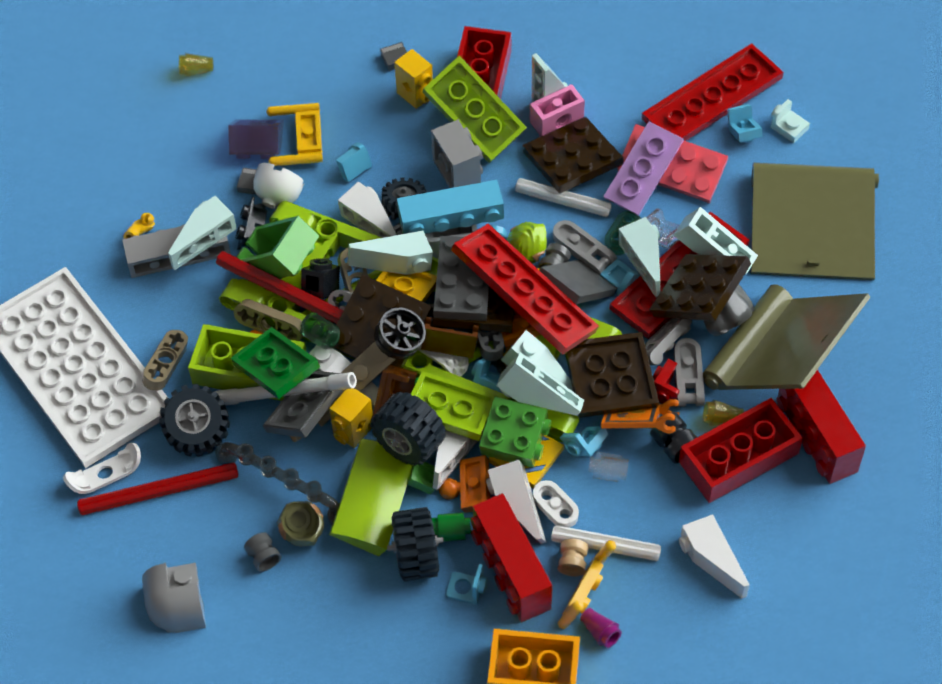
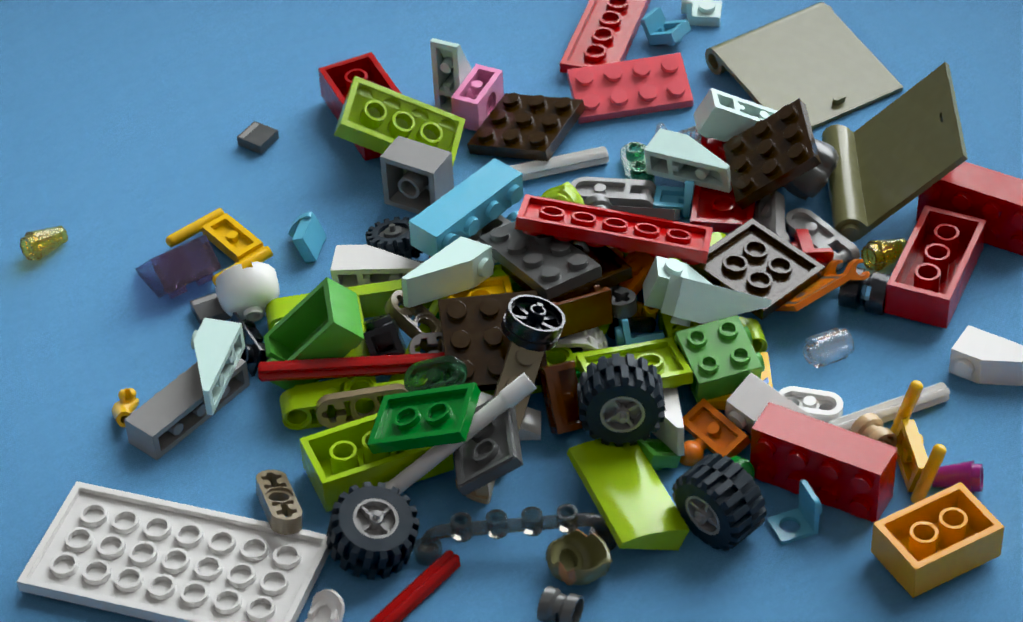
camera: 35 degrees left, 15 degrees down
(351, 417) = (538, 437): yellow brick -> none
(411, 76) = (307, 137): yellow brick -> none
(585, 443) = (784, 338): medium azure bracket -> none
(643, 168) = (614, 96): lavender brick -> none

